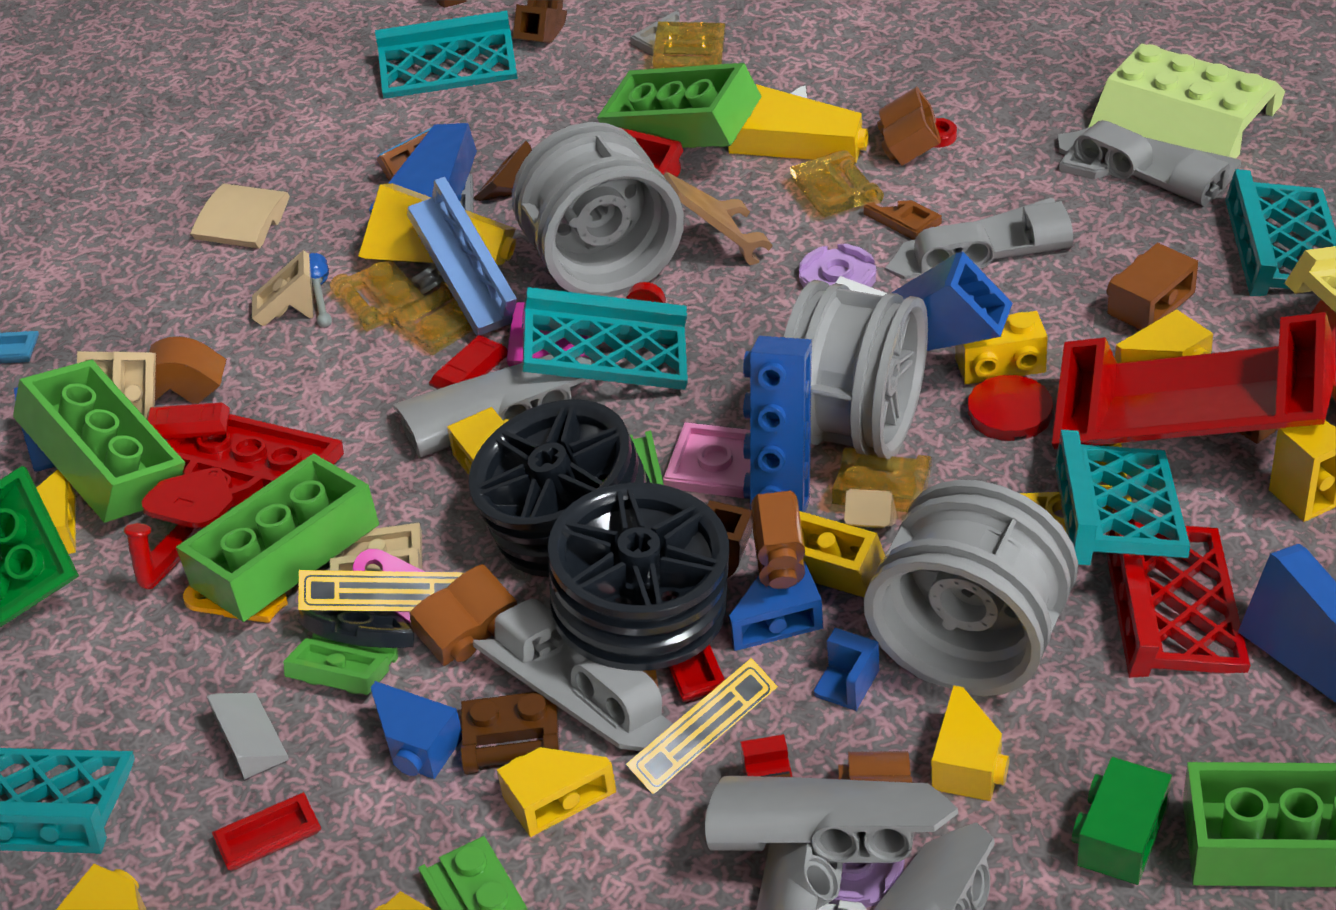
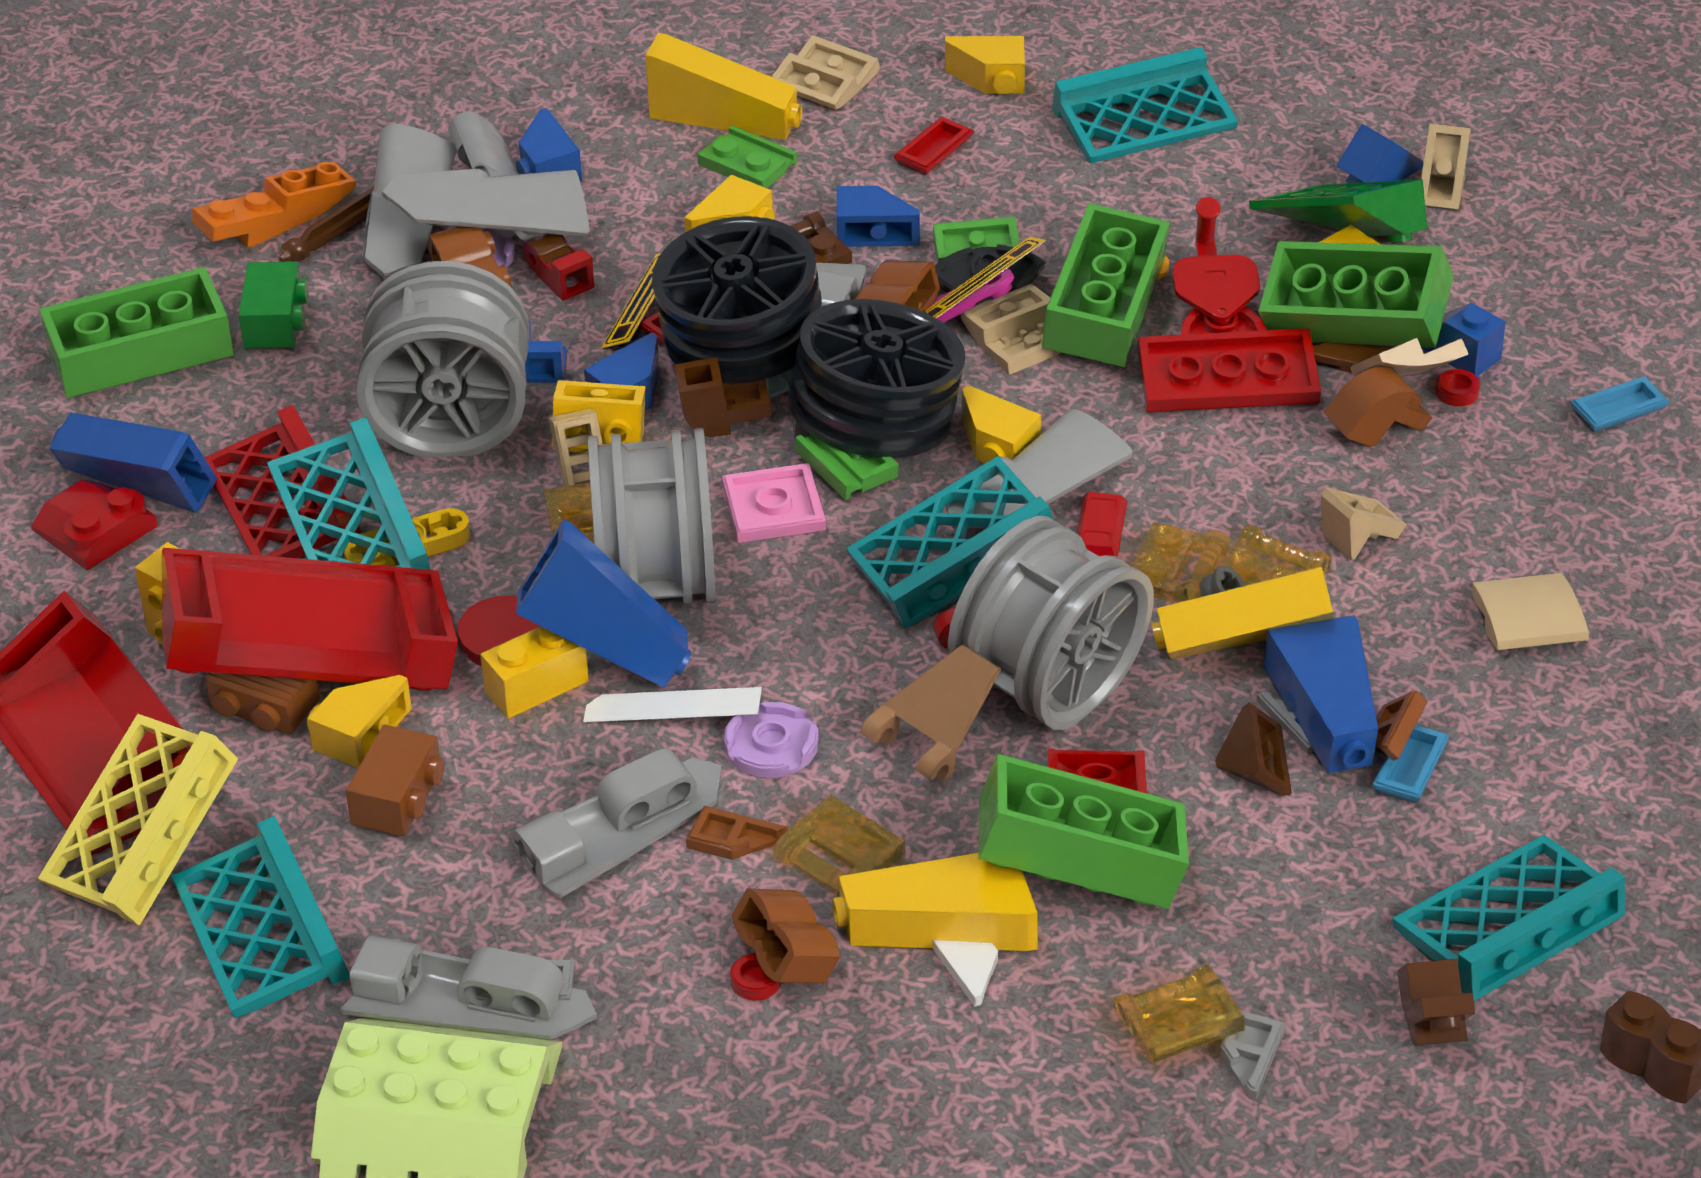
camera: 150 degrees right, 0 degrees up
(190, 420) = (1309, 360): red tile -> none
(247, 732) = (1011, 187): light grey slope -> none
(319, 275) = (1365, 566): hinge -> none
(463, 259) = (1179, 557): medium blue fence -> none
(778, 417) = (688, 401): blue brick -> none
(778, 539) = (627, 338): dark orange brick -> none

